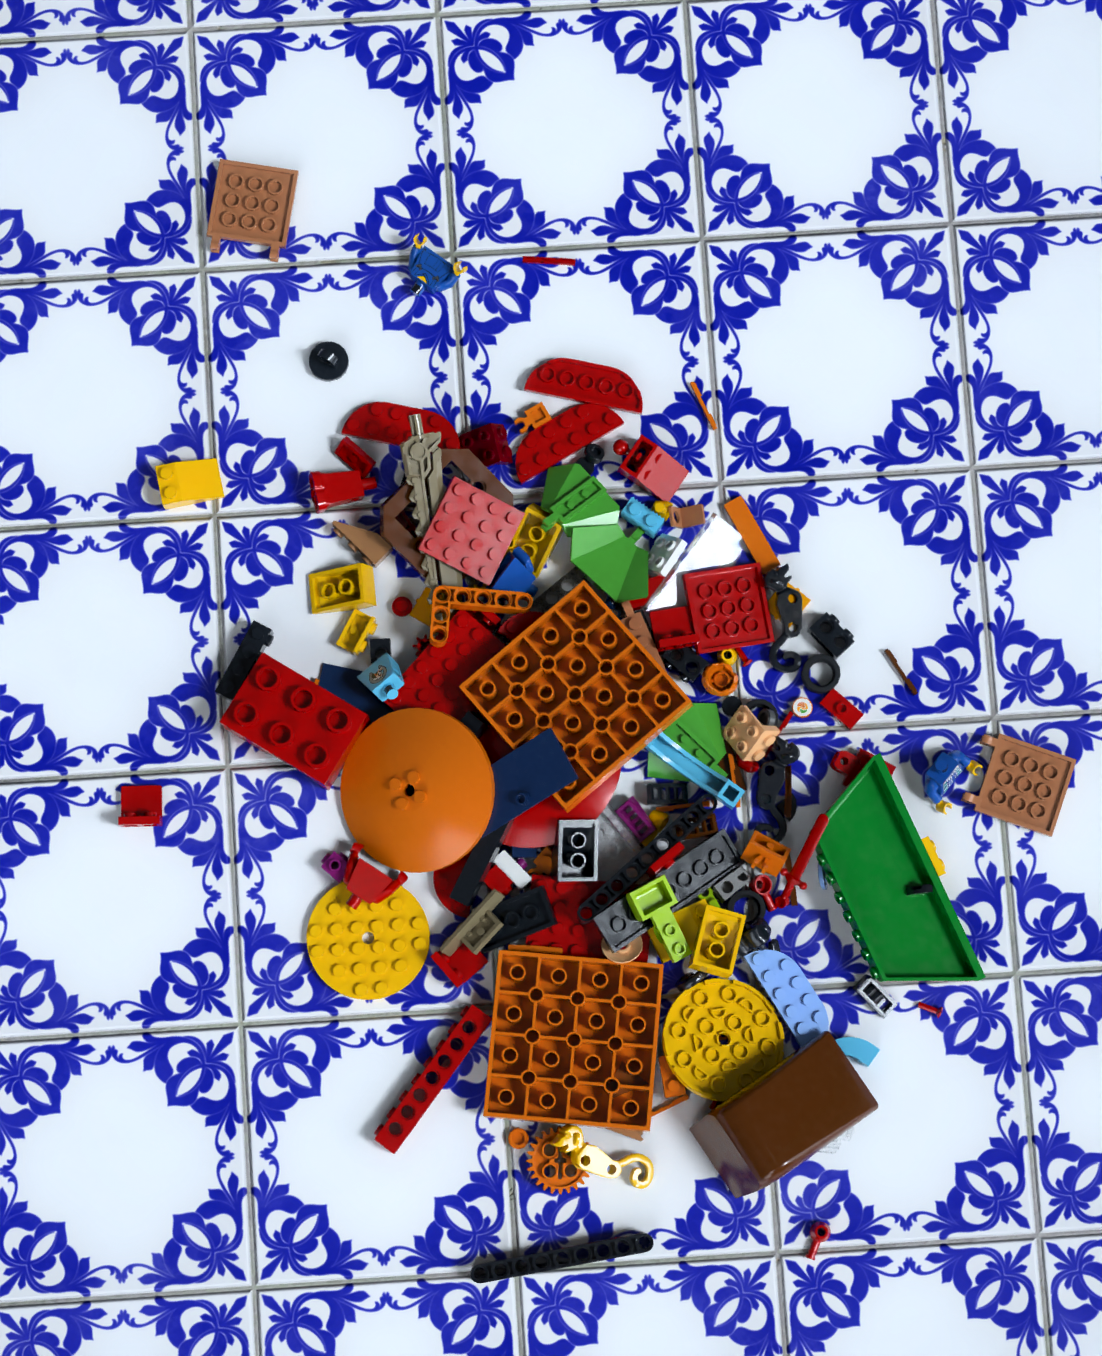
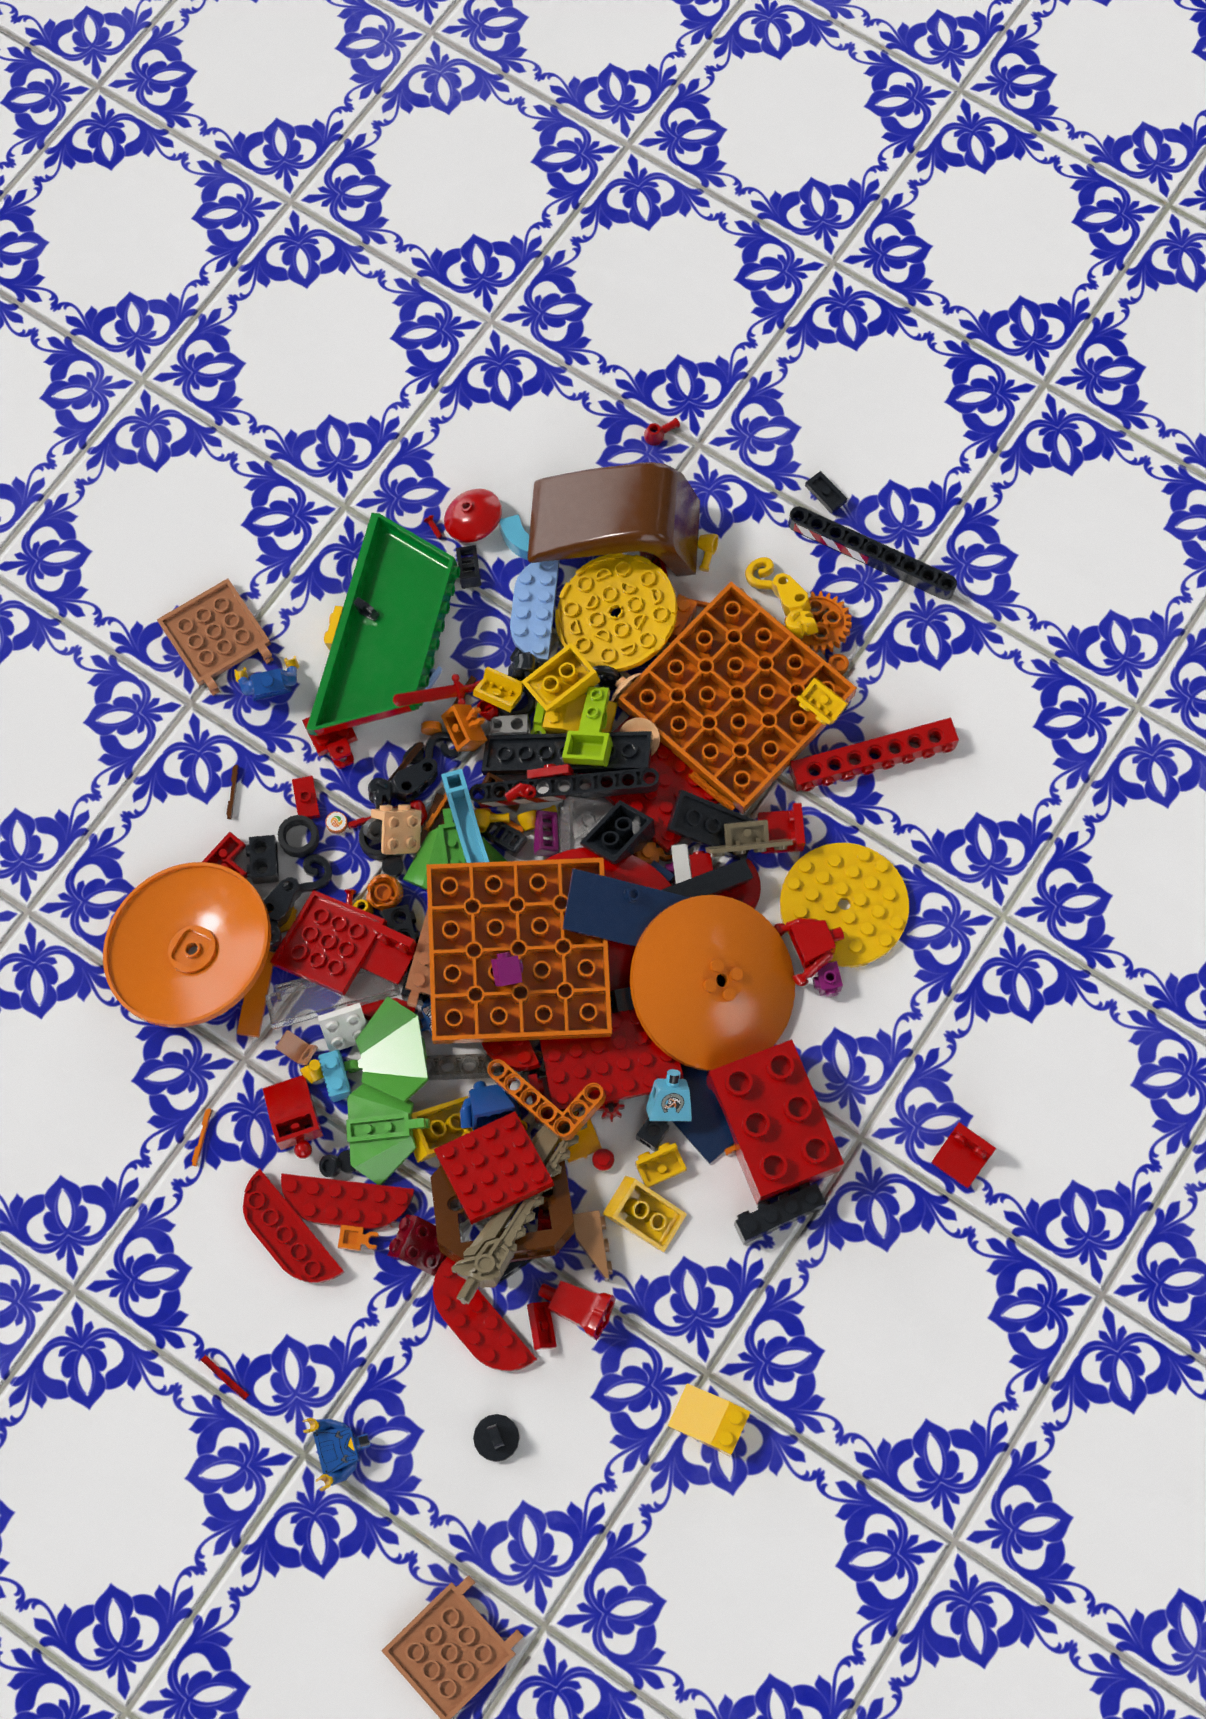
camera: 140 degrees left, 10 degrees down
(499, 1077) = (822, 702): none -> yellow bracket
(567, 666) = (507, 969): none -> magenta brick
(639, 1286) = (826, 492): none -> black plate
(668, 983) = (622, 684): none -> light nougat dish
(674, 827) = (520, 790): none -> red arm
(692, 793) = (485, 817): none -> yellow bar
(698, 1163) = (708, 544): none -> yellow bar
(761, 900) = (499, 689): none -> yellow bracket
(791, 836) = (431, 727): none -> orange tile
(861, 516) = (160, 922): none -> orange dish
(861, 610) = (227, 852): none -> red brick
(895, 1040) = (473, 515): none -> red dish

